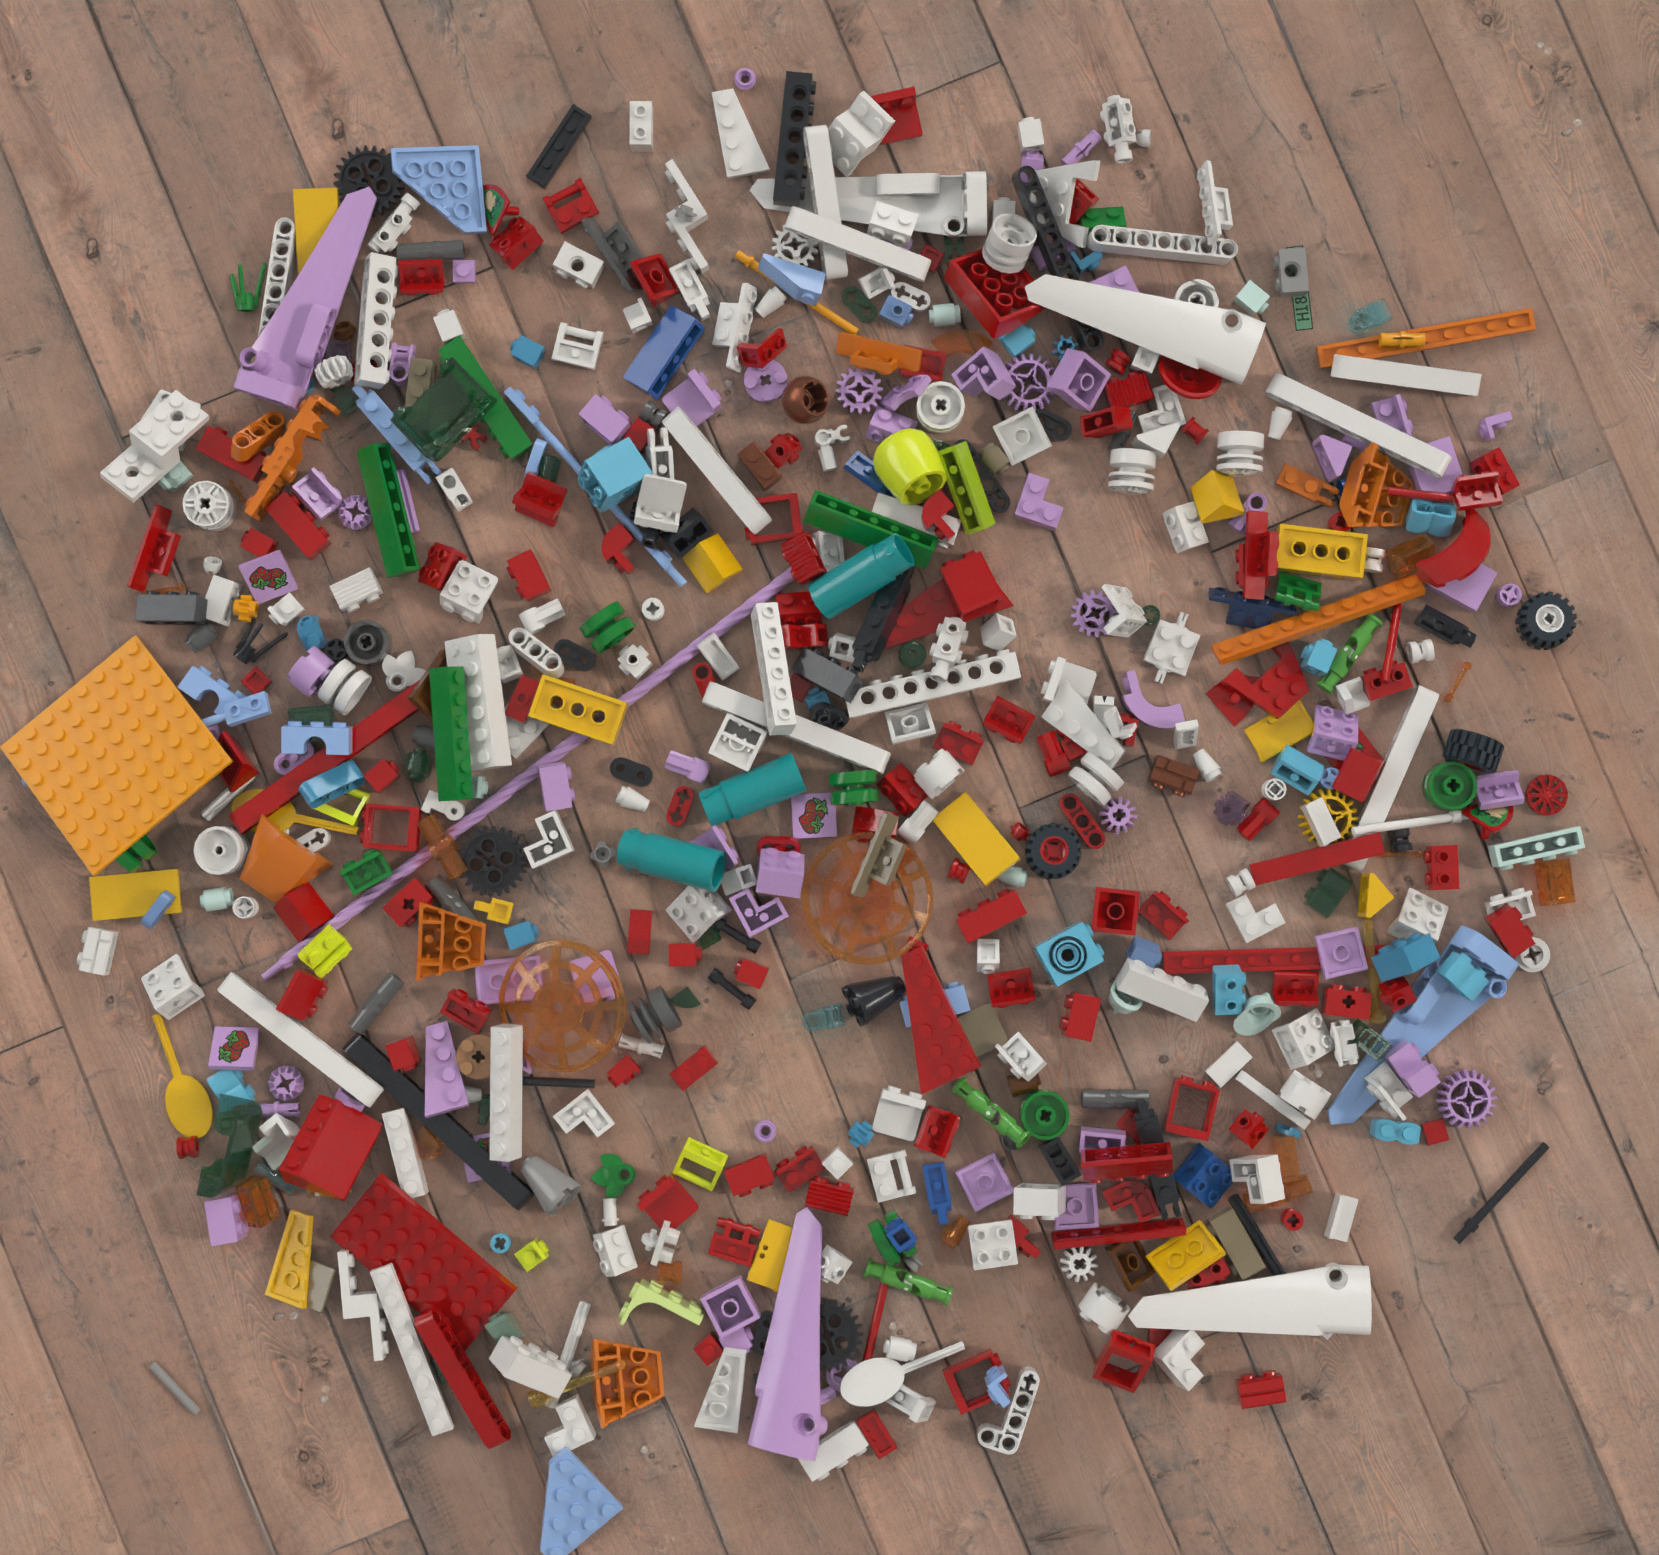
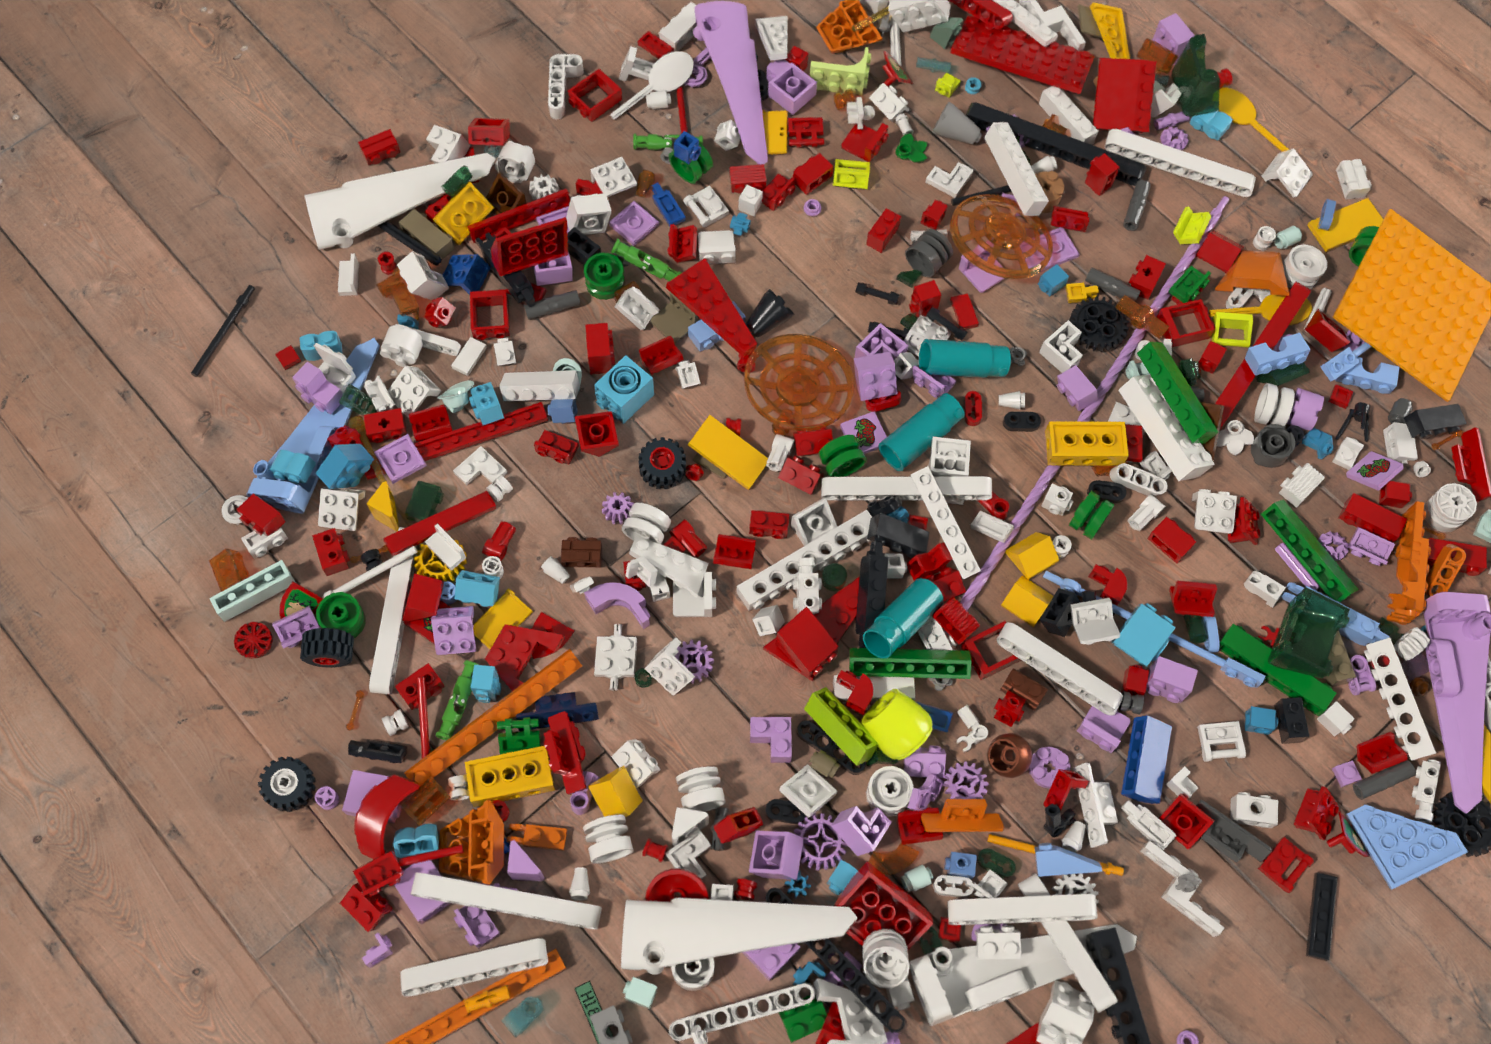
camera: 160 degrees right, 20 degrees down
(234, 1048) = (1223, 144): lavender tile -> none
(246, 608) = (1378, 443): light orange gear -> none
(303, 995) = (1193, 190): red slope -> none
(331, 784) = (1247, 335): dark azure beam -> none
(443, 1077) = (1062, 159): lavender wing -> none
(447, 942) = (1107, 255): orange wedge -> none
(496, 340) = (1291, 720): none -> black brick
(538, 1289) = (933, 64): none -> clear light blue pin
(590, 1289) = (894, 71): none -> red shield
(641, 126) = (1260, 958): white brick -> none
(659, 457) = (1110, 662): white hinge -> none
(680, 932) = (959, 332): none -> black bar
(687, 611) = (1033, 554): none -> yellow slope
(692, 768) = (980, 437): lavender piece -> none
(738, 142) = (1165, 975): white wing -> none
(751, 972) = (868, 302): red brick -> none
(784, 319) = (1055, 823): none -> black bar
(825, 1017) = (796, 294): clear light blue piece -> none
(847, 1329) = (713, 94): black gear -> none
(881, 859) = (800, 406): dark tan bracket -> none
(938, 774) = (777, 489): white brick -> none
(990, 915) = (695, 402): red brick -> none
(995, 1390) = (578, 83): light blue bracket -> none
(1015, 877) = (684, 436): light aqua cone -> none
(1091, 827) = (643, 486): red beam -> none
(1128, 391) = (727, 864): red brick -> none
(1185, 1291) = (457, 181): none -> clear green hinge
(1186, 1055) = (504, 351): none -> white bracket
(1238, 807) = (524, 540): clear purple brick -> none
(1352, 696) = (445, 664): white panel -> none
(1466, 1090) = (256, 385): lavender gear -> none

